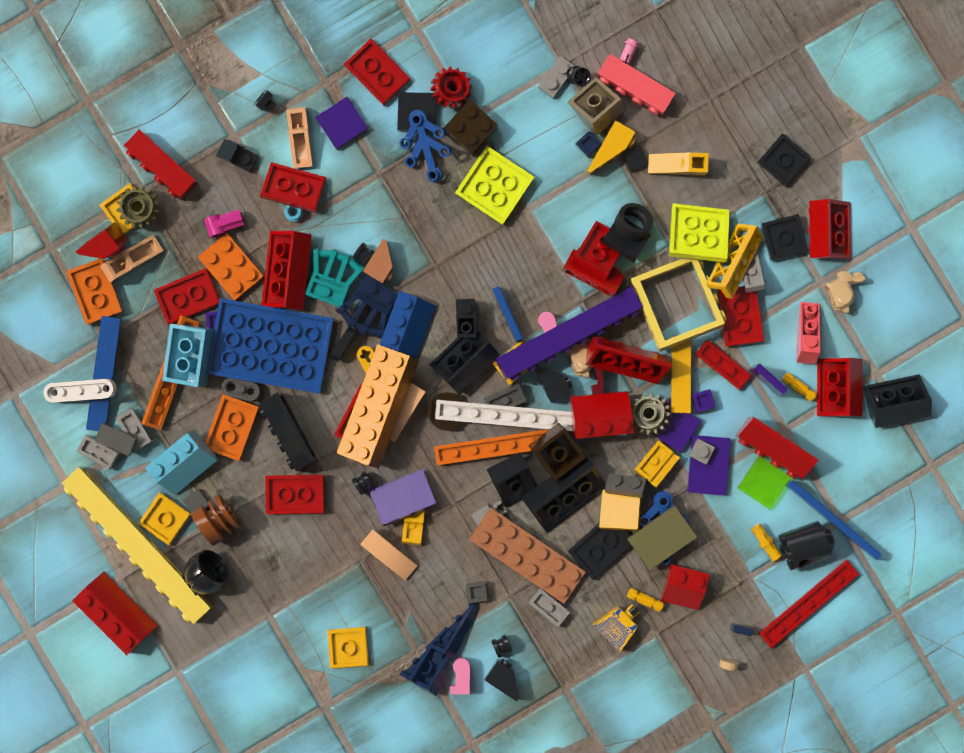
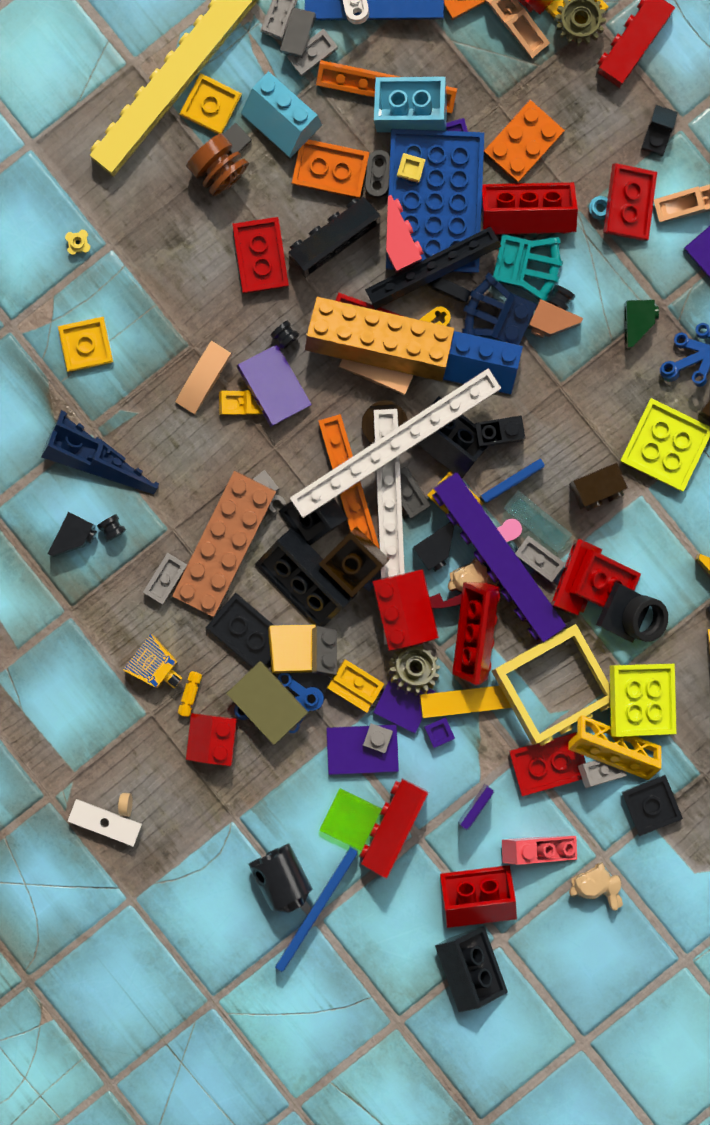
camera: 85 degrees right, 0 degrees up
(115, 613) = (90, 60): red slope -> none
(187, 296) = (481, 94): red tile -> none
(206, 573) = (152, 161): black piece -> none
(219, 224) = (573, 120): dark pink piece -> none
(240, 361) = (411, 168): none -> light yellow tile
(258, 643) = (77, 248): none -> light yellow plate
(302, 379) = (399, 243): none -> coral slope
(325, 354) = (433, 267): none -> black plate
(389, 193) = (638, 319): none -> dark green slope
(462, 669) = (76, 484): bright pink leg -> none
(465, 405) = (395, 443): none -> white plate
(476, 592) = (172, 489): dark grey plate -> none
(521, 244) = (598, 486): none -> dark brown brick
(542, 298) = (537, 521): none -> clear light blue plate
(573, 300) = (539, 559): none -> light grey plate
(723, 365) = (486, 751): red tile -> none
(736, 694) = (90, 817): none -> white tile
(741, 629) = (169, 814): dark blue tile -> none
(766, 542) = (278, 831): yellow pin -> none
(799, 387) = (472, 847): yellow axle -> none
(808, 603) = (211, 892): red tile -> none
(830, 229) = (669, 860): red slope -> none

